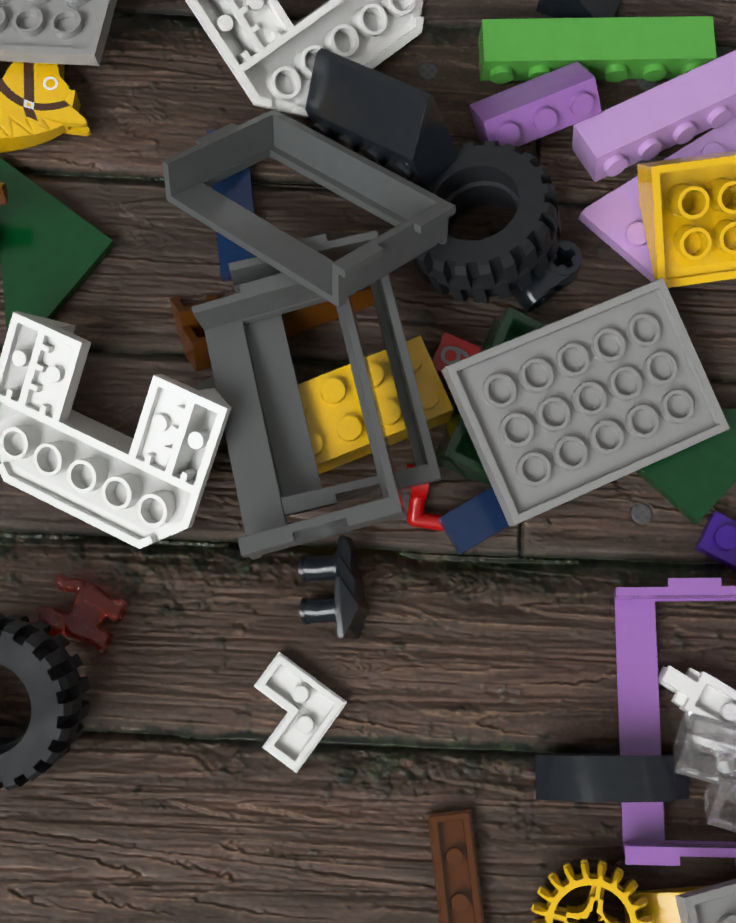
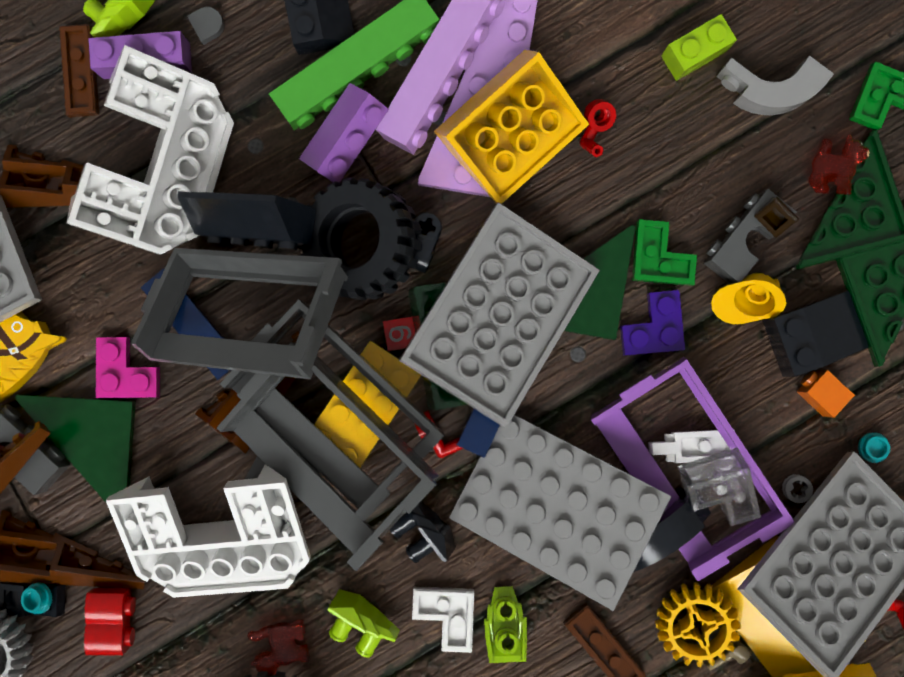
camera: 30 degrees left, 10 degrees up
(115, 205) = (115, 375): none -> dark pink plate
(197, 631) = (356, 612): none -> lime connector
(355, 771) = (505, 627): none -> lime connector
(516, 670) = (561, 510): none -> light grey plate

